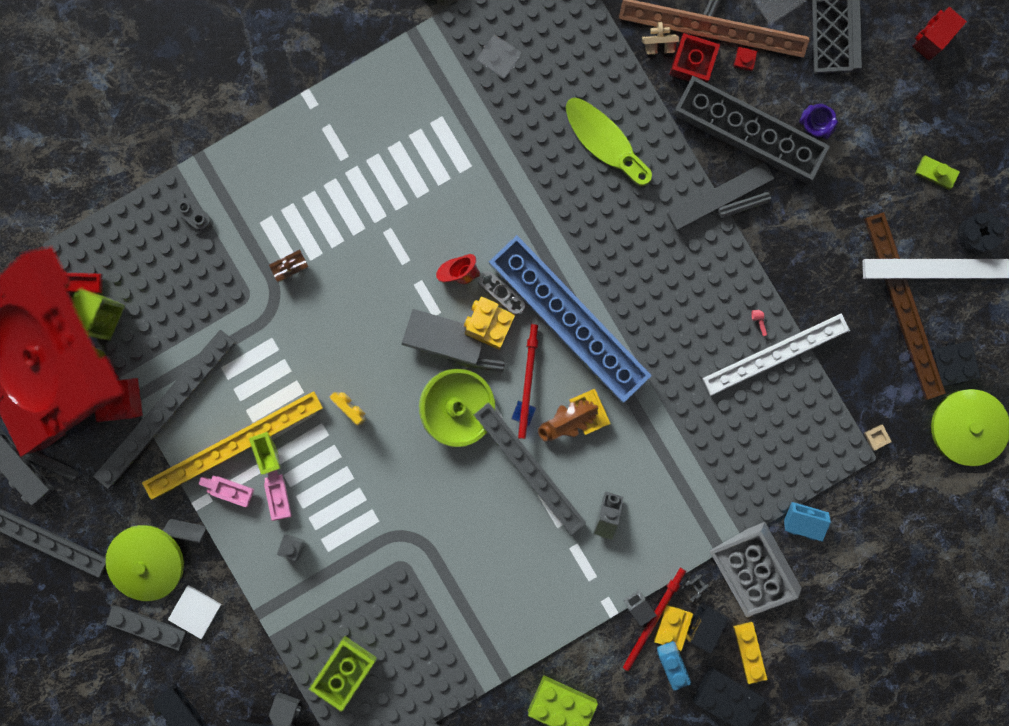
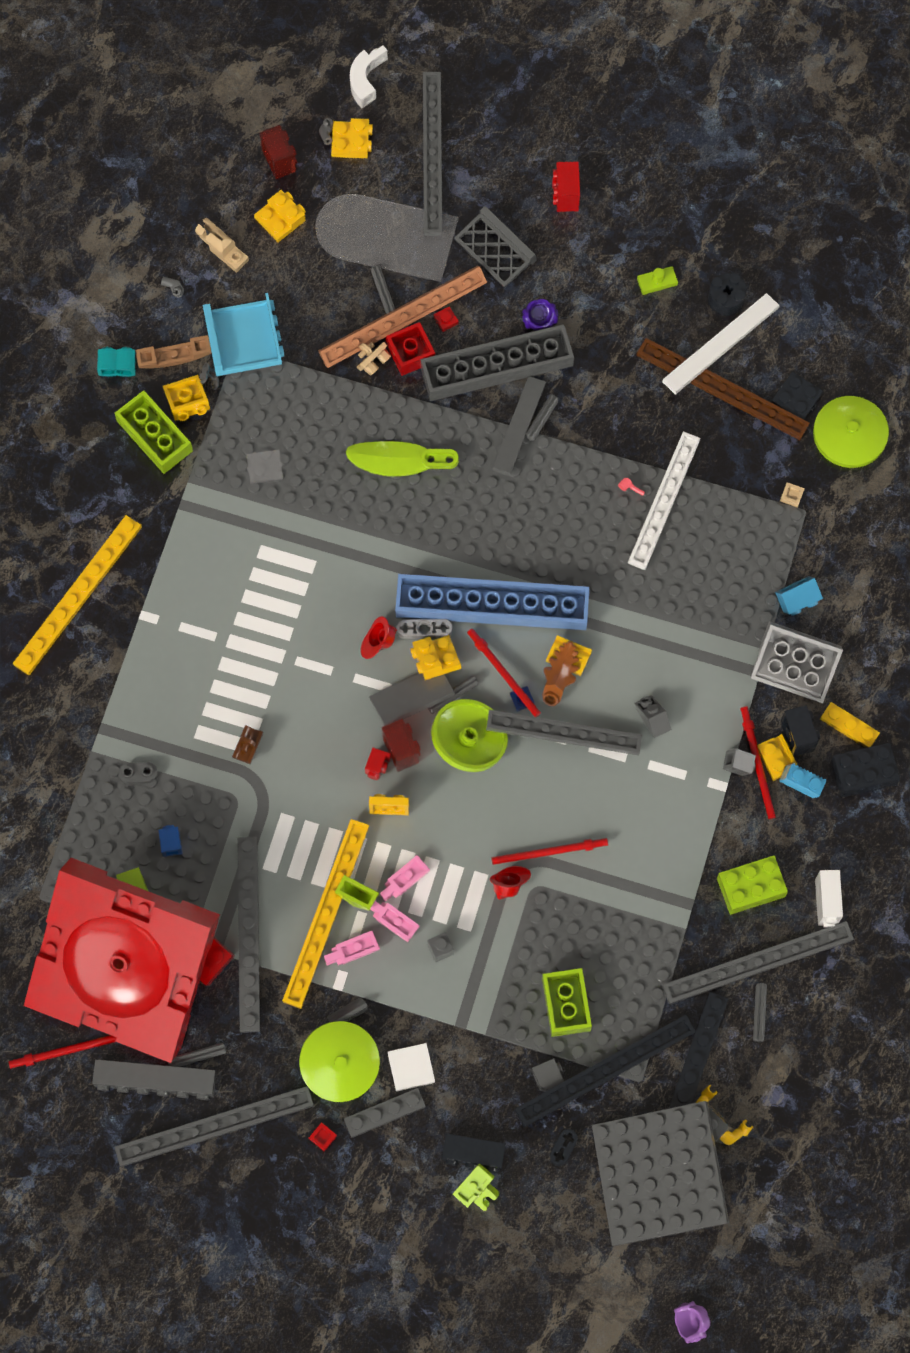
camera: 40 degrees left, 15 degrees down
(86, 605) = (322, 1137): none -> red plate
(168, 288) = (170, 841): none -> blue brick
(272, 33) = (77, 595): none -> yellow plate
(313, 471) = (404, 878): none -> bright pink hinge
(370, 366) = (377, 763): none -> red brick
(387, 544) = (509, 880): none -> red piece
(398, 369) = (400, 743): none -> clear red brick
(469, 567) = (587, 845): none -> red bar
(698, 591) = (772, 717): dark grey piece -> none

